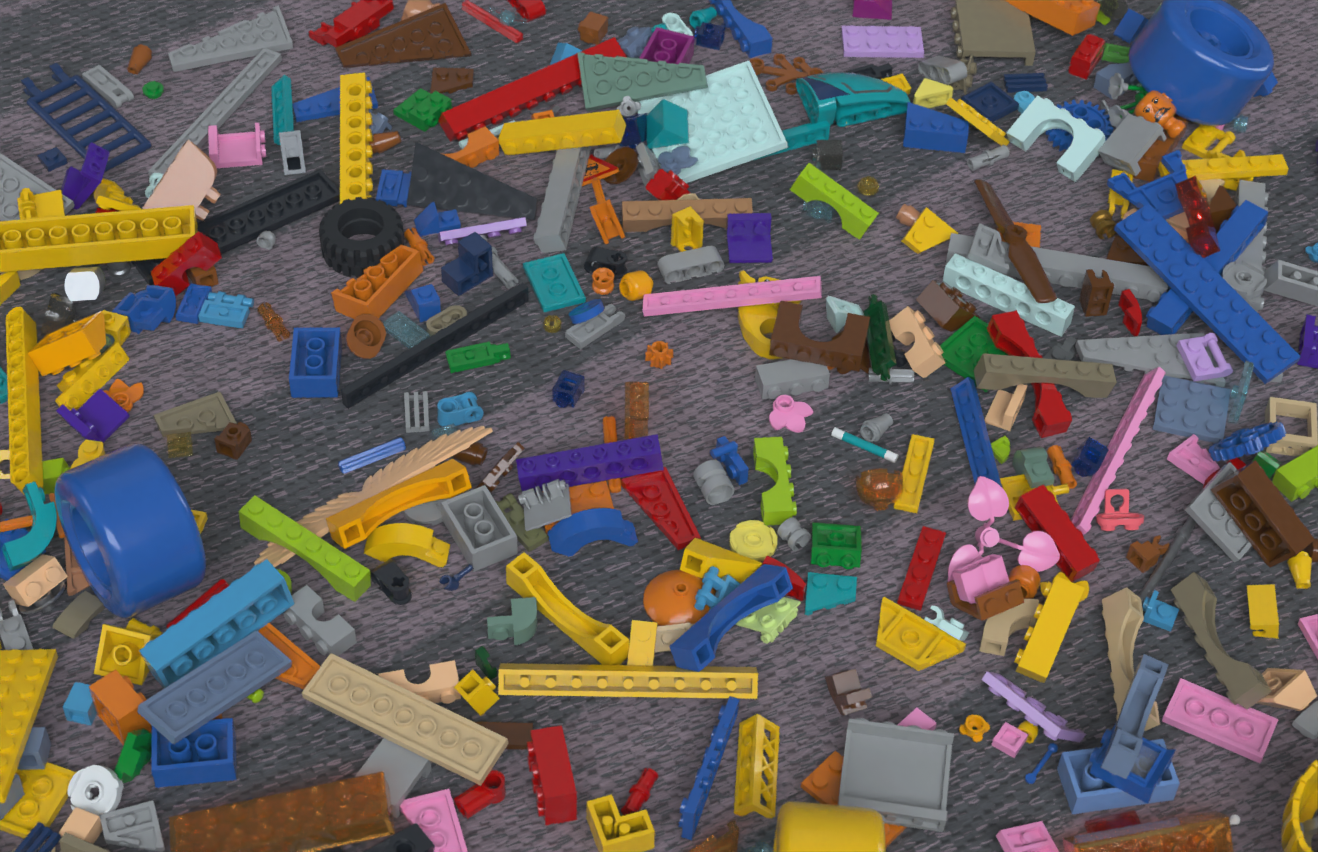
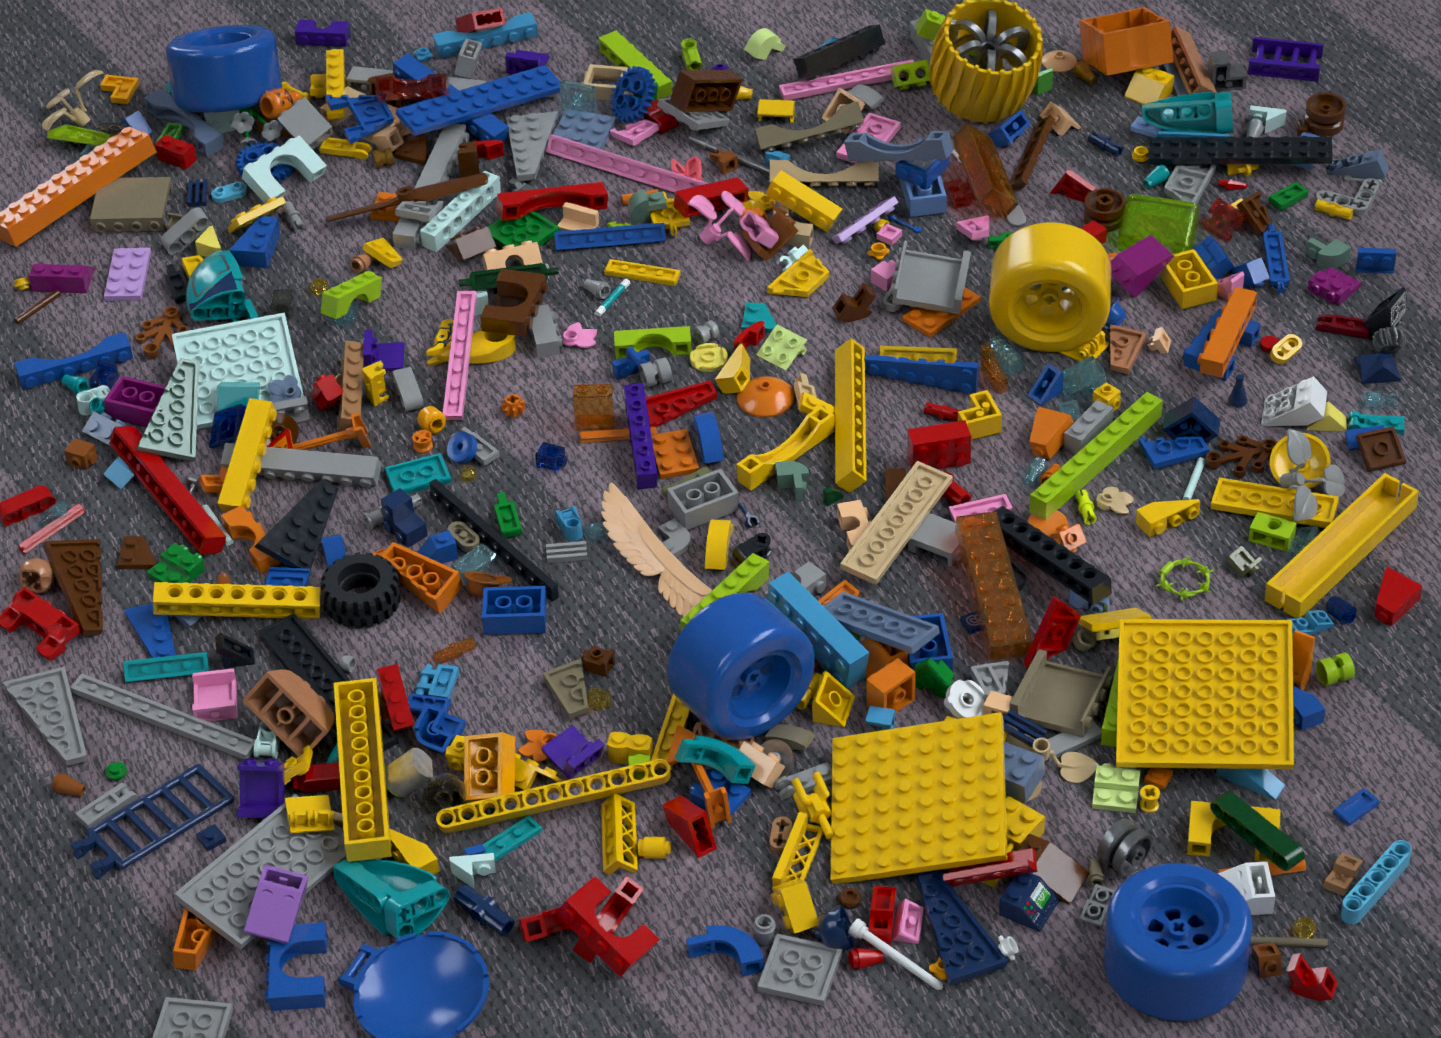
camera: 85 degrees left, 5 degrees down
(362, 518) = (706, 560): light orange arch -> none
(371, 455) = (615, 575): axle -> none
(477, 692) = (865, 491): yellow brick -> none
(492, 230) = (352, 518): plate -> none
(502, 467) = (640, 490): wing -> none
(546, 506) = (685, 457): light grey hinge -> none
(606, 258) = (400, 438): black piece -> none
(628, 102) = (204, 424): light grey plate -> none
(699, 643) = (825, 366): blue arch -> none
(711, 580) = (770, 369): dark azure plate -> none
(836, 545) = (719, 308): green plate -> none
(879, 488) = (665, 284): clear orange cylinder -> none
(921, 568) = (735, 271): red plate -> none
(991, 102) = (222, 211): dark blue plate -> none
(1004, 371) = (559, 190): dark tan arch -> none
(1089, 457) = (634, 179): clear blue brick -> none
(1198, 361) = (539, 114): lavender plate -> none
(1254, 274) = (464, 80): light grey plate -> none

